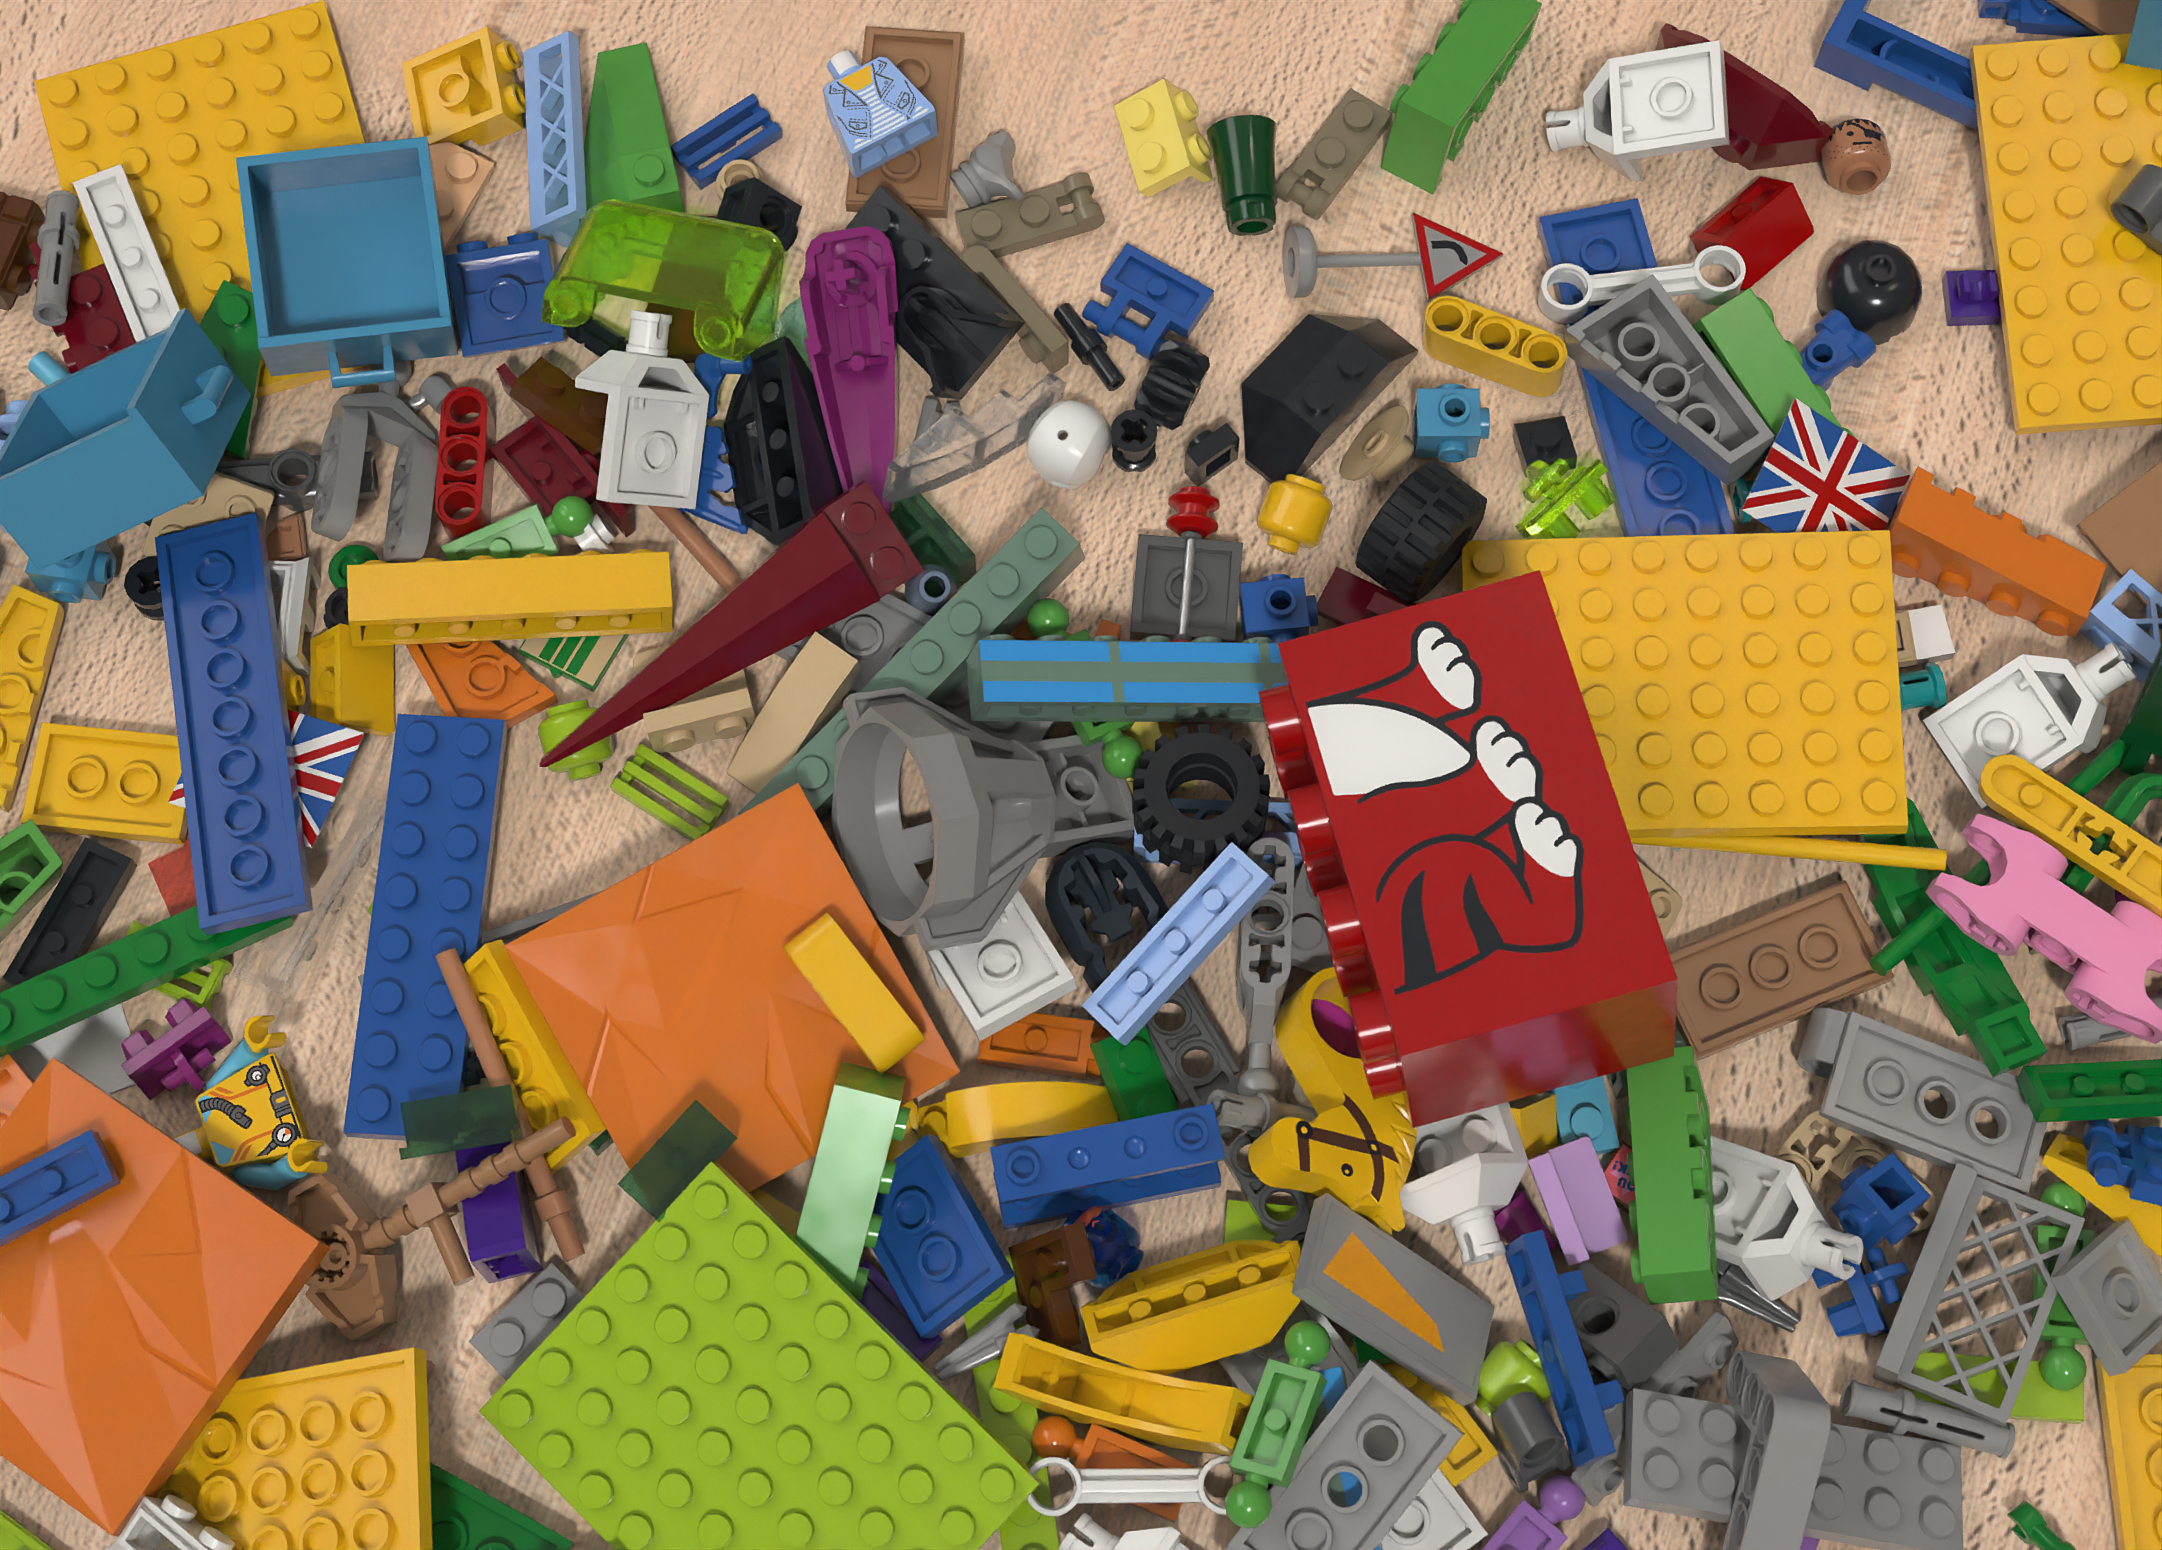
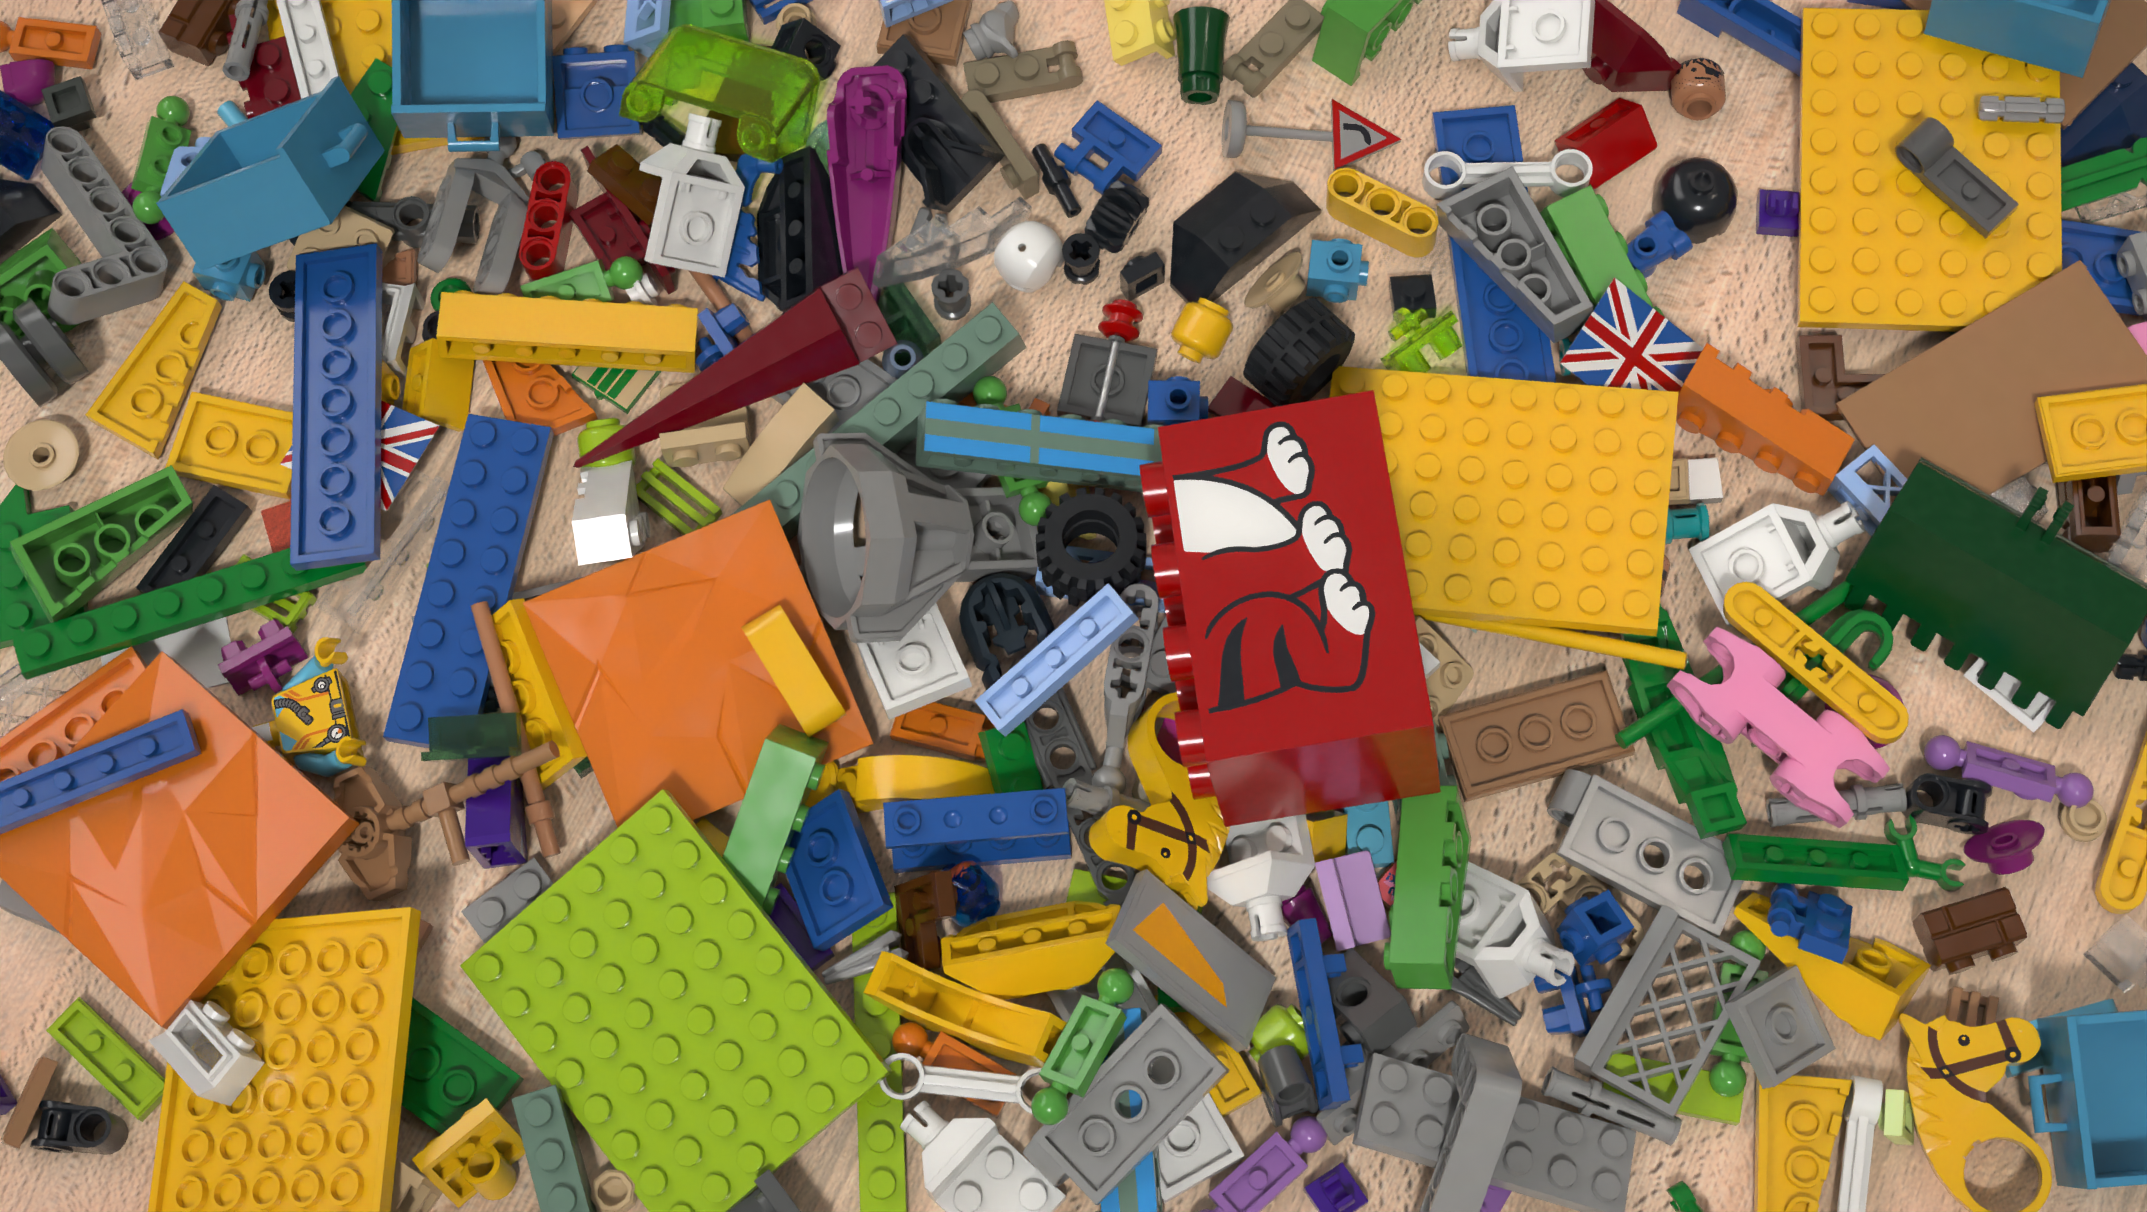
camera: 10 degrees right, 0 degrees up
(592, 823) = (608, 517): none -> white wedge
(677, 1159) = (637, 784): clear green panel -> none
(701, 572) = (722, 328): none -> blue hips
(979, 485) = (951, 307): none -> dark grey bush
(2055, 492) = (1823, 375): none -> reddish brown plate

